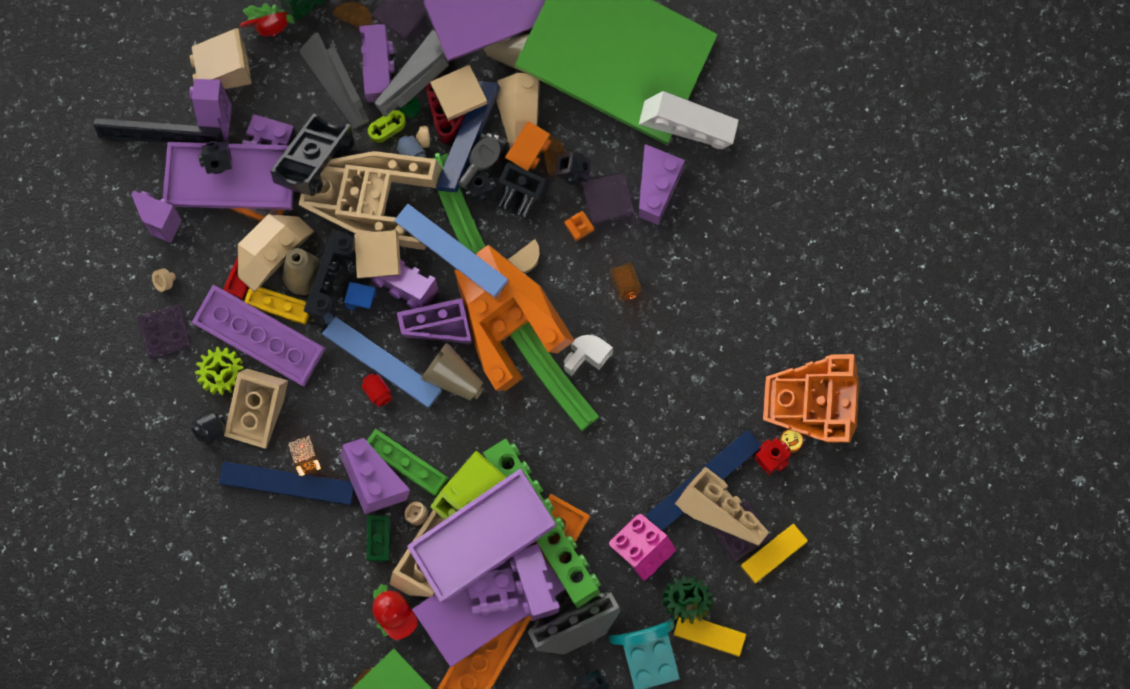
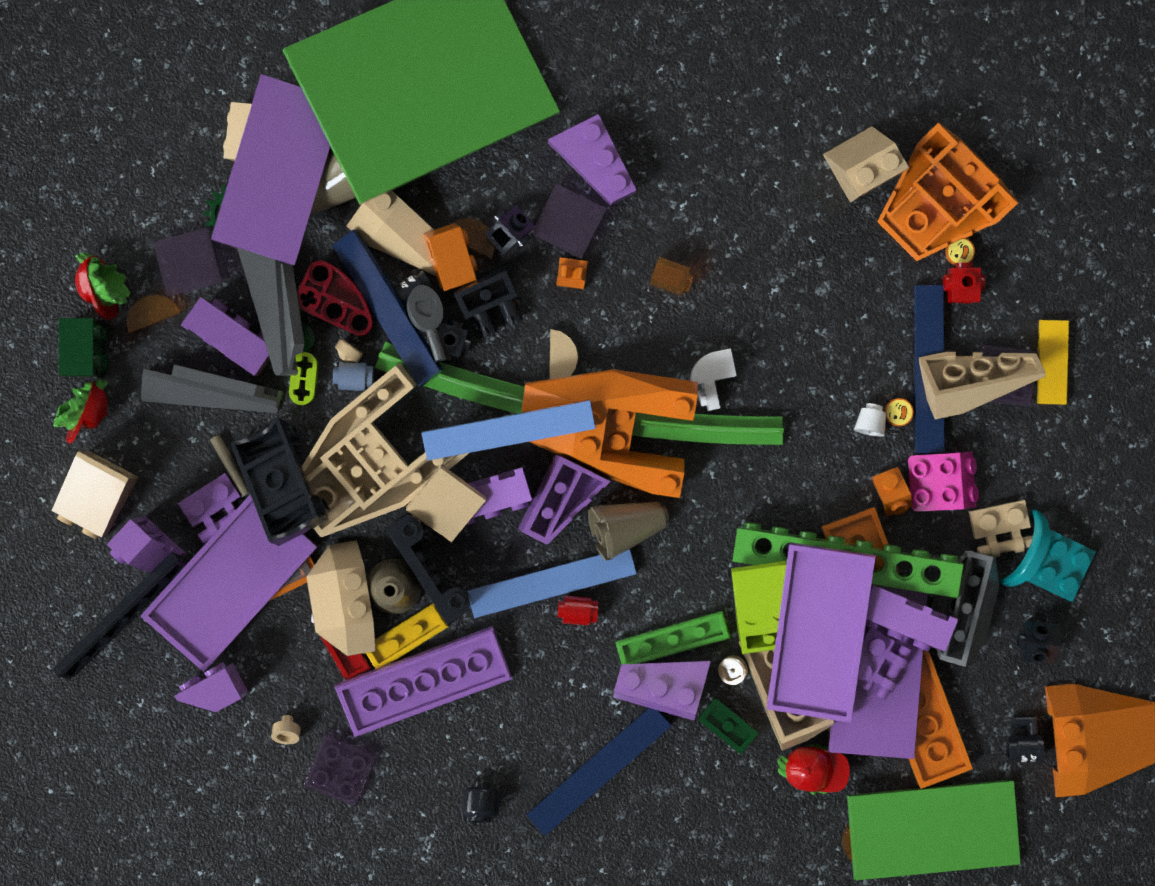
camera: 50 degrees left, 15 degrees up
(211, 371) = (441, 755): lime gear -> none
(216, 157) = (203, 582): black brick -> none
(255, 407) = (497, 741): tan slope -> none
(303, 120) = (230, 464): none -> dark tan piece
(304, 455) = (587, 733): clear orange brick -> none
(359, 296) = (469, 551): blue panel -> none
(458, 92) = (334, 280): tan tile -> none
(609, 520) = (893, 491): none -> orange bracket
(641, 470) = (871, 420): none -> white hat
(646, 601) = (1001, 519): none -> tan plate
(661, 484) = (898, 412): none -> light yellow tile
(688, 120) = (559, 73): white wedge -> none
(688, 601) = (1041, 479): dark green gear -> none
(711, 635) = (1077, 488): yellow tile -> none
(791, 339) = (865, 162): none -> tan slope

